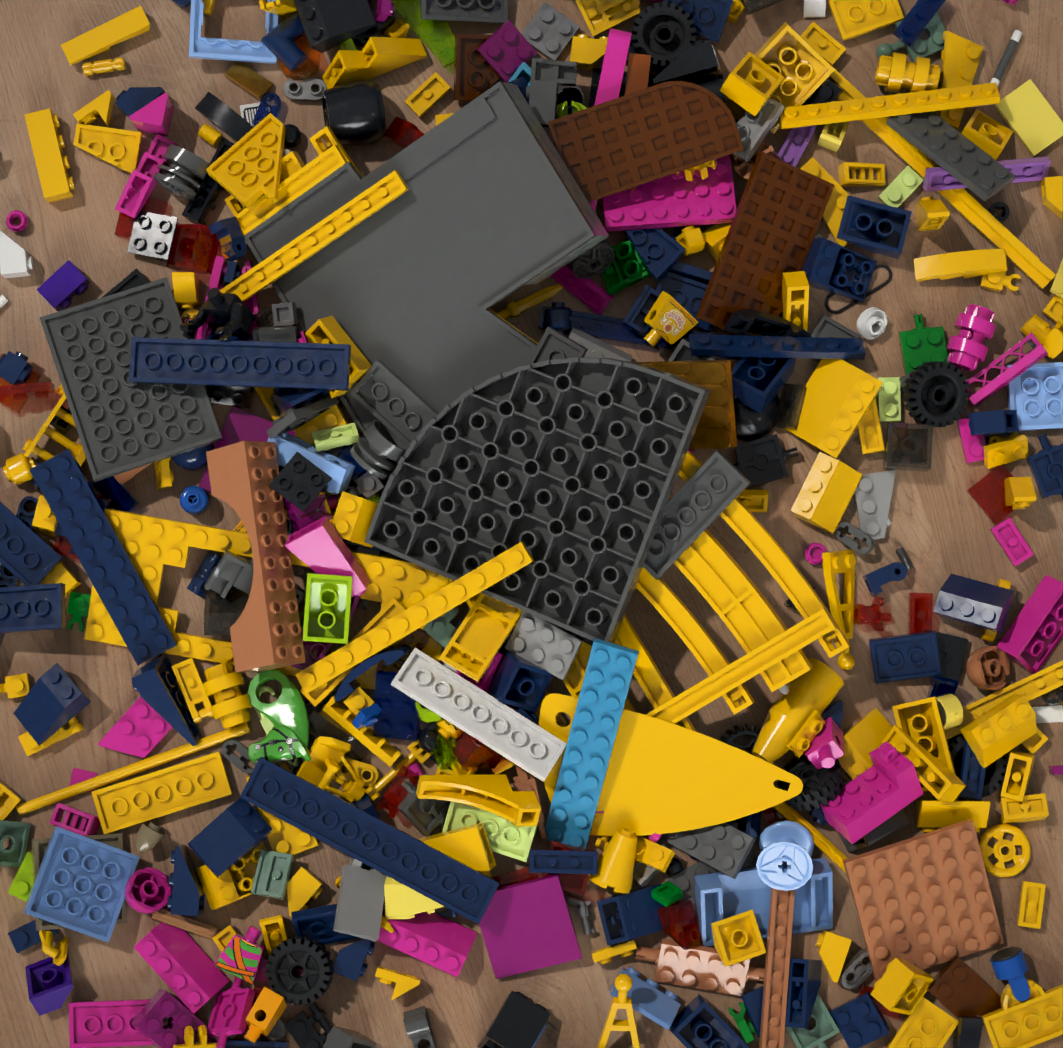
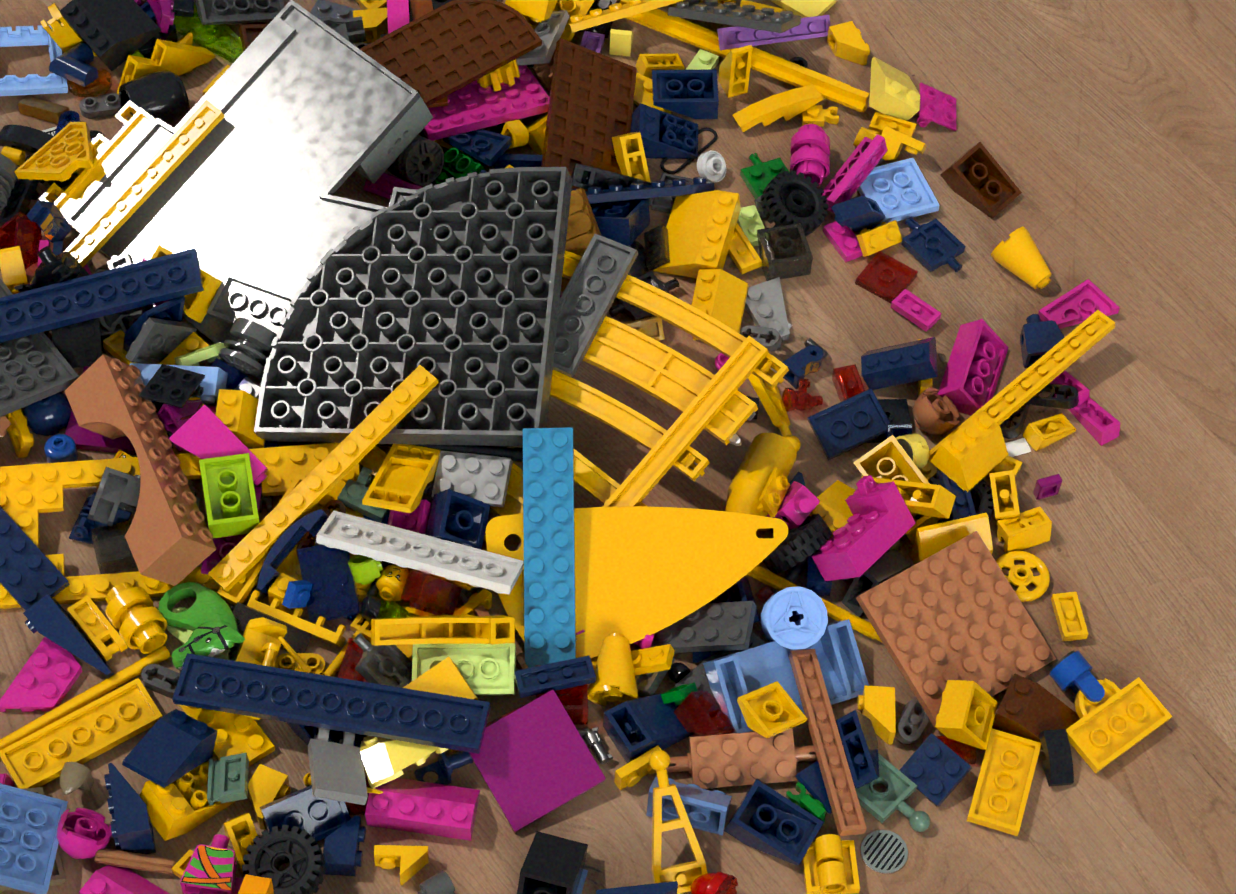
camera: 20 degrees left, 30 degrees down
(1019, 492) = (906, 261): yellow slope -> none

